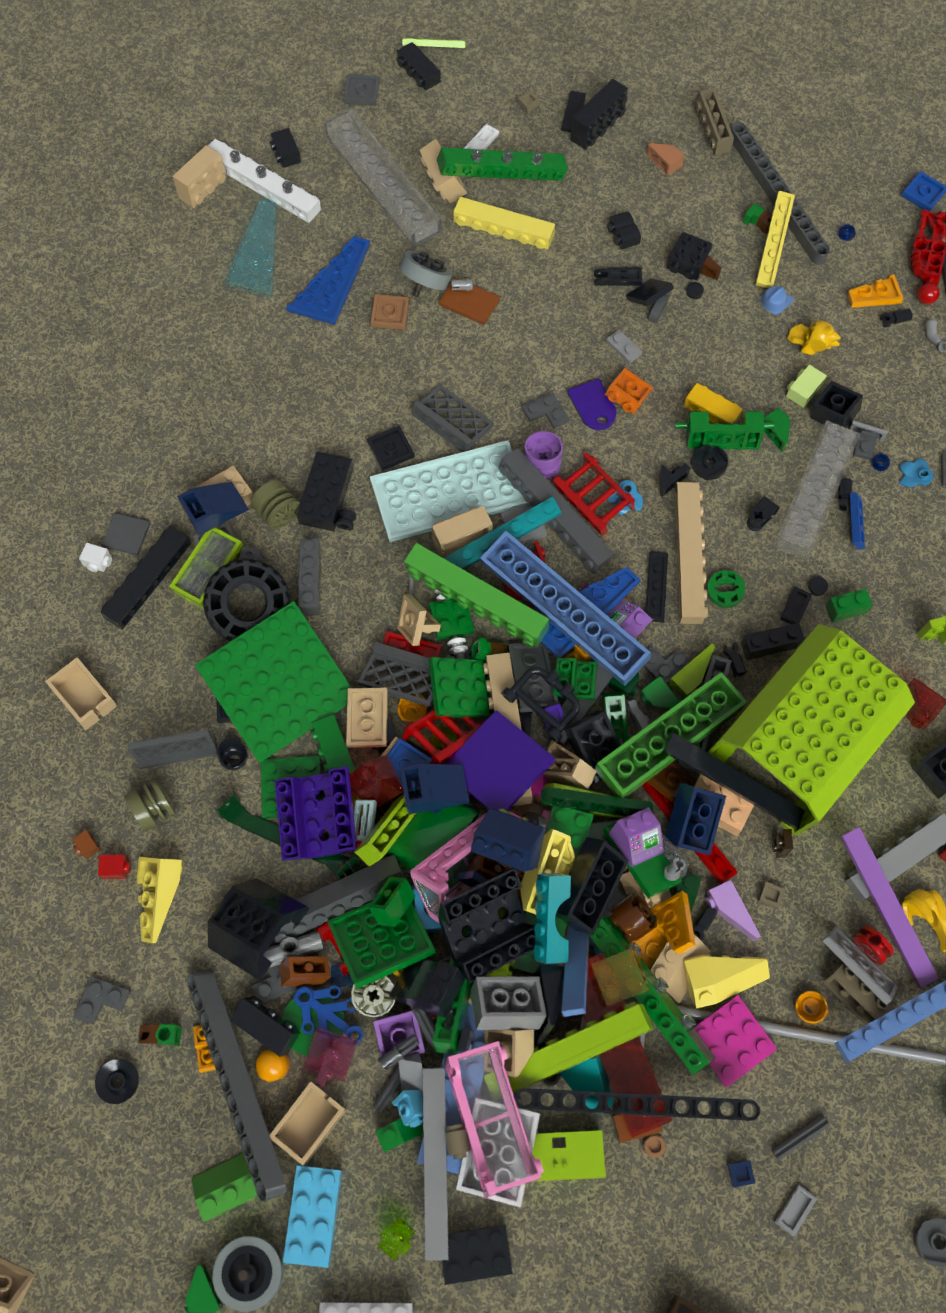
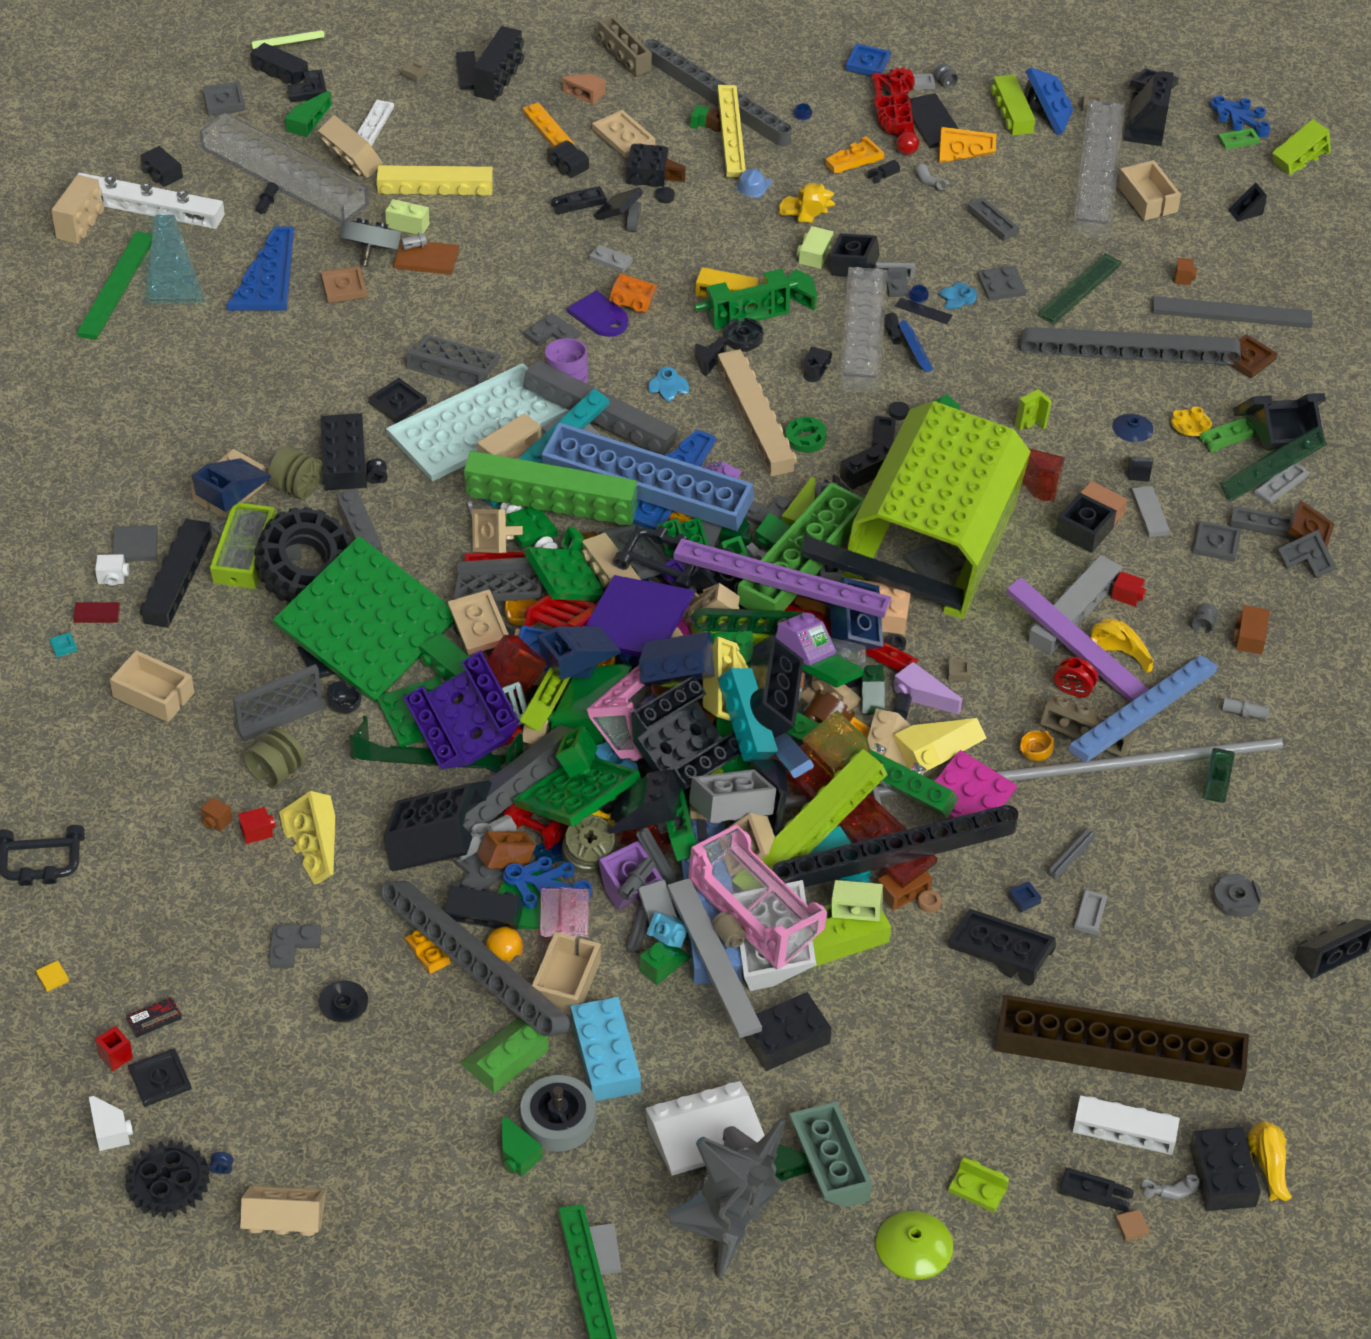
camera: 20 degrees left, 20 degrees down
(32, 621) = (63, 644): none -> teal tile
(70, 596) = (96, 612): none -> dark red tile
(160, 1034) = (371, 950): leg -> none
(206, 261) = (115, 286): none -> green tile
(359, 203) = (267, 197): none -> black axle
(396, 1239) = (706, 1036): clear neon green brick -> none
(423, 125) = (308, 114): none -> green slope
(435, 99) = (313, 86): none -> black plate
(466, 256) = (407, 217): none -> yellowish green brick
(501, 164) = (414, 124): green piece -> none
(583, 1145) = (857, 900): none -> yellowish green brick
(587, 511) = (637, 367): red fence -> none
(619, 188) = (545, 124): none -> light orange plate
(639, 773) = (782, 578): none -> medium lavender plate
(656, 586) = (733, 448): black tile -> none
(673, 871) = (851, 660): light grey pin -> none
(676, 922) = (873, 703): light orange wing -> none
(681, 214) = (622, 132): none -> tan plate
(701, 1225) = (1003, 944): none -> black hinge
(725, 844) = (896, 641): none -> black tile
(783, 843) = (953, 619): dark brown plate -> none
(860, 964) = (1071, 695): light grey tile -> none
(879, 480) = (923, 310): none -> black piece

